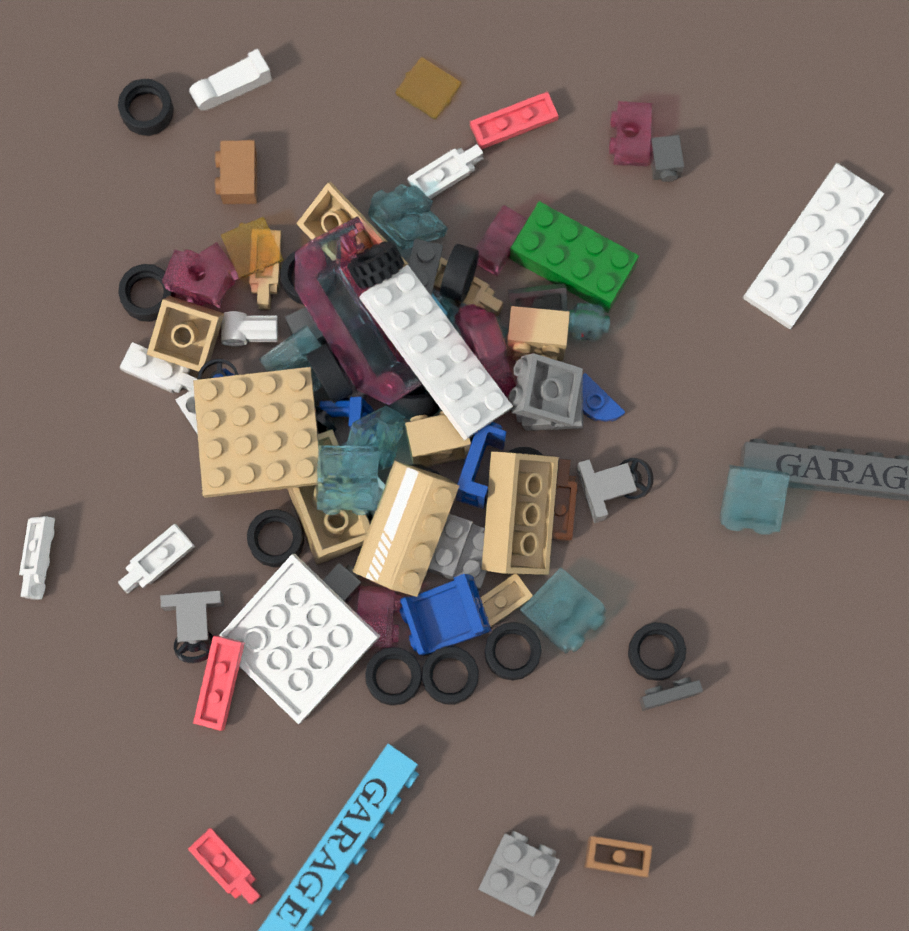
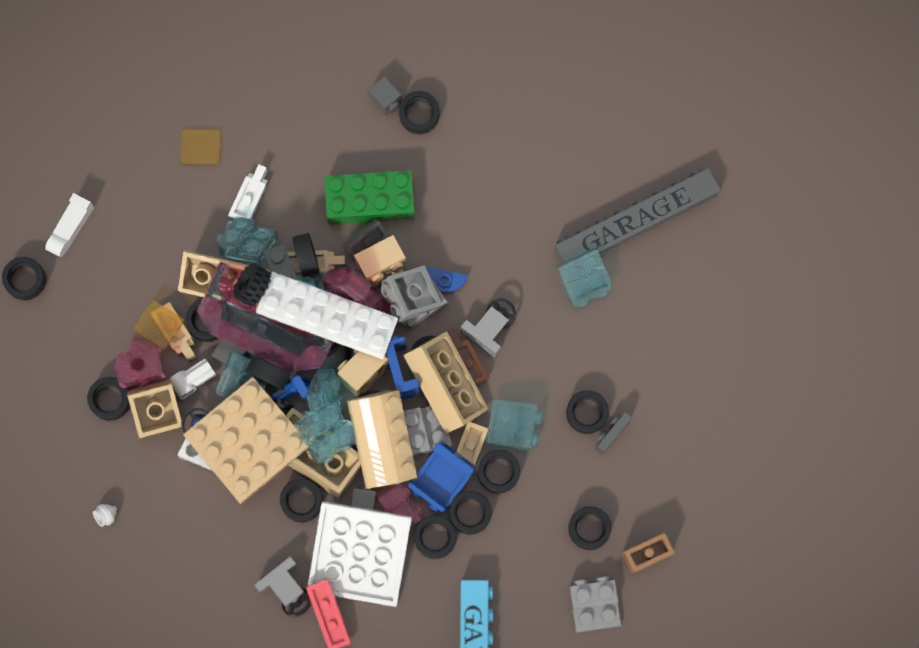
camera: 35 degrees left, 0 degrees up
(36, 556) = (155, 614): white hinge -> none
(57, 413) = (104, 514): none -> white plate
(155, 370) = (151, 445): white hinge -> none
(156, 559) = (234, 564): white hinge -> none
(237, 172) = (114, 281): medium nougat brick -> none
(498, 240) = (315, 216): clear pink brick -> none
(514, 120) = (271, 133): coral plate -> none
(588, 322) = (406, 233): clear light blue head -> none
(590, 769) = (601, 515): none -> black tyre
(633, 117) = (351, 82): clear pink brick -> none
(692, 179) = (415, 97): none -> black tyre
(813, 246) = (514, 93): white plate -> none

